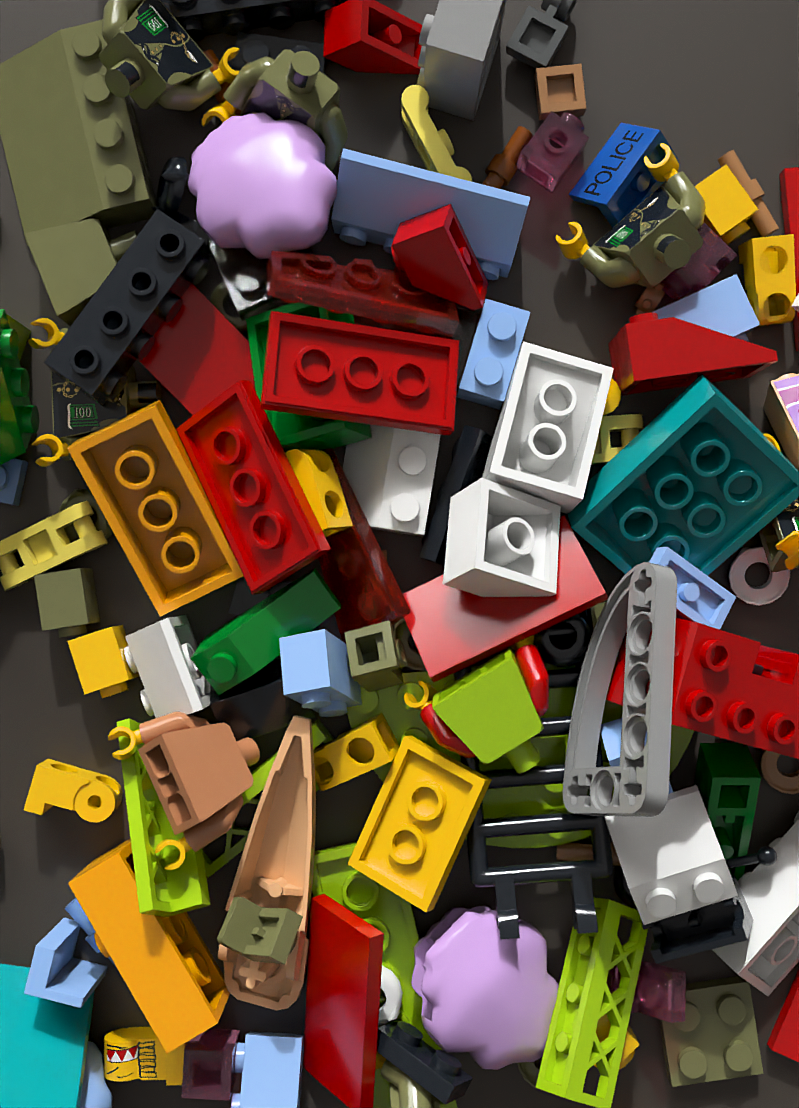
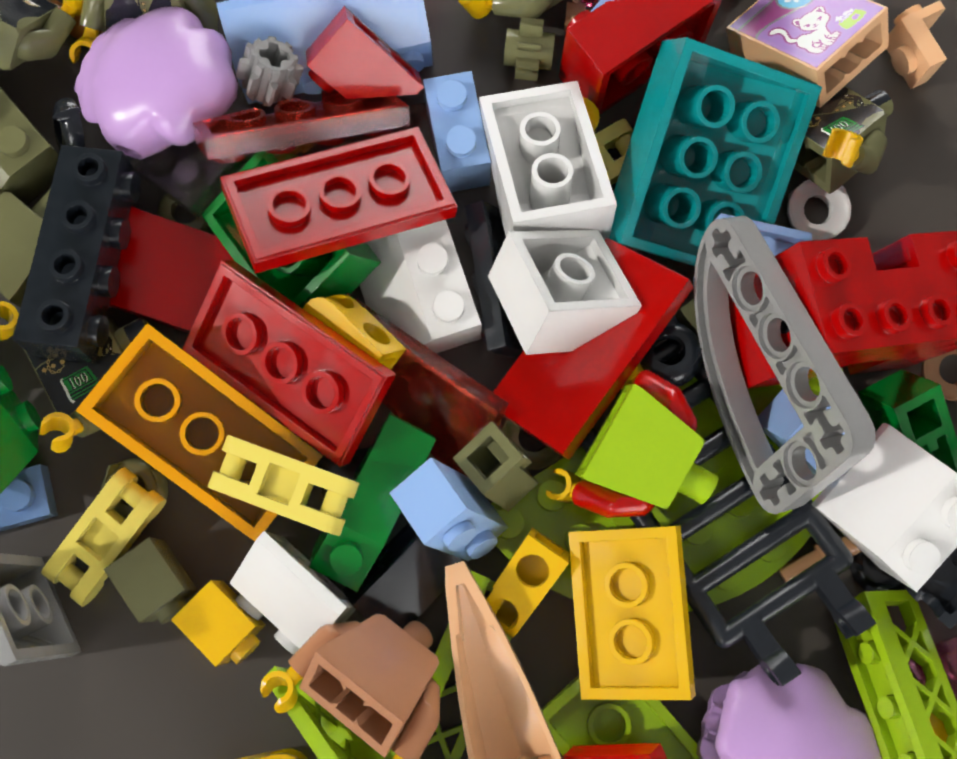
camera: 30 degrees left, 10 degrees down
(200, 589) = (283, 485): none -> light yellow plate
(359, 230) = (269, 71): none -> light grey gear
(593, 311) = (529, 49): none -> olive gear

